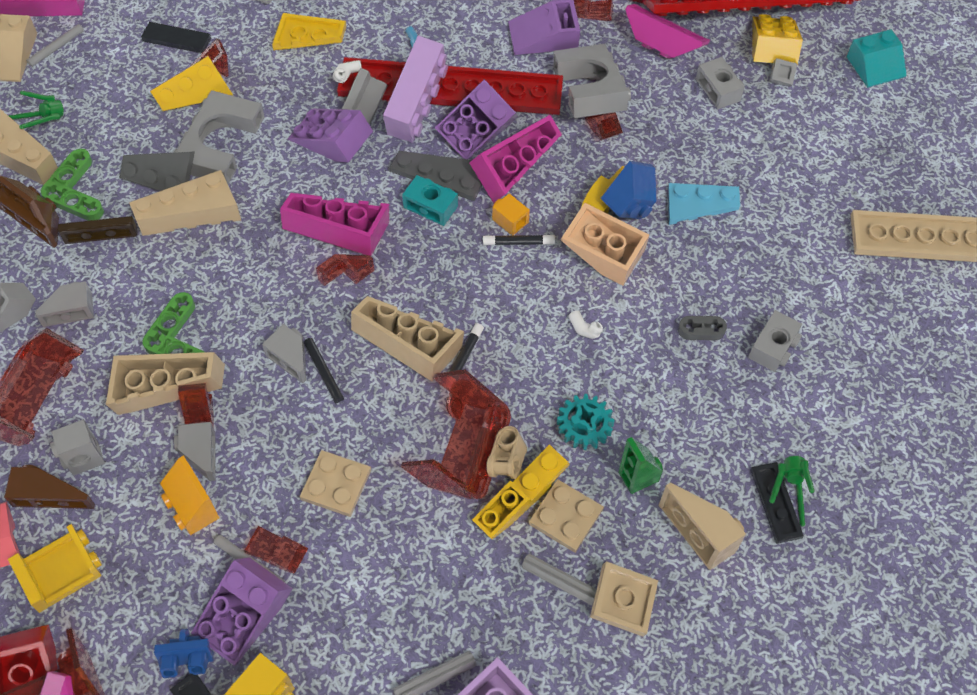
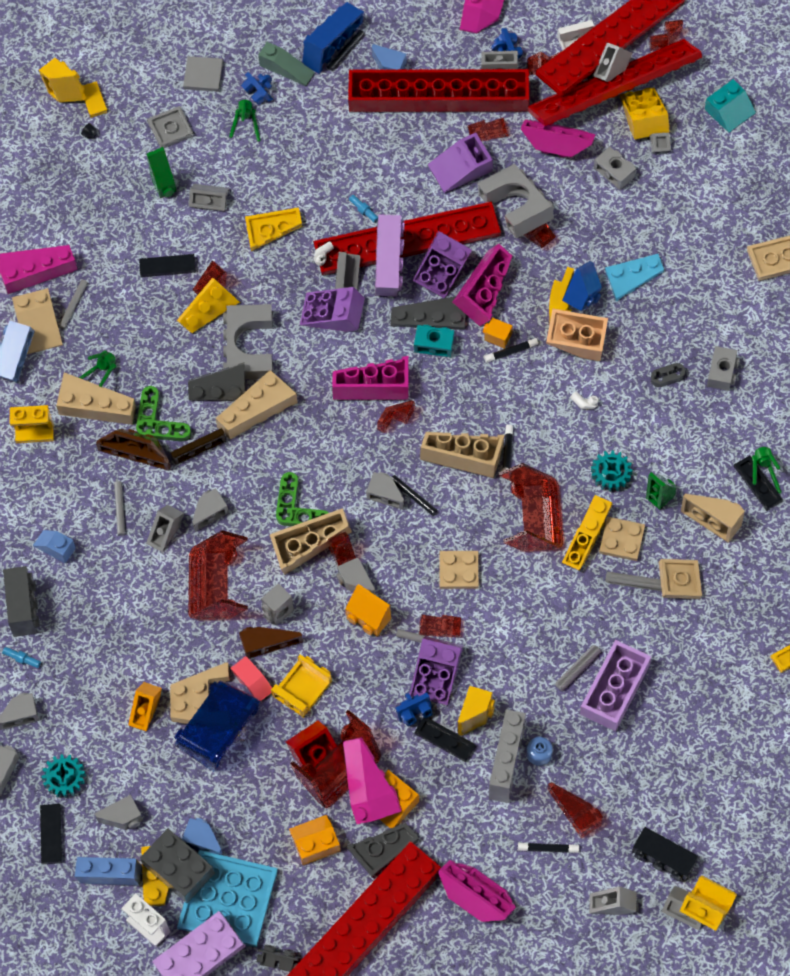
camera: 15 degrees left, 5 degrees up
(507, 454) = (569, 513): tan piece -> none

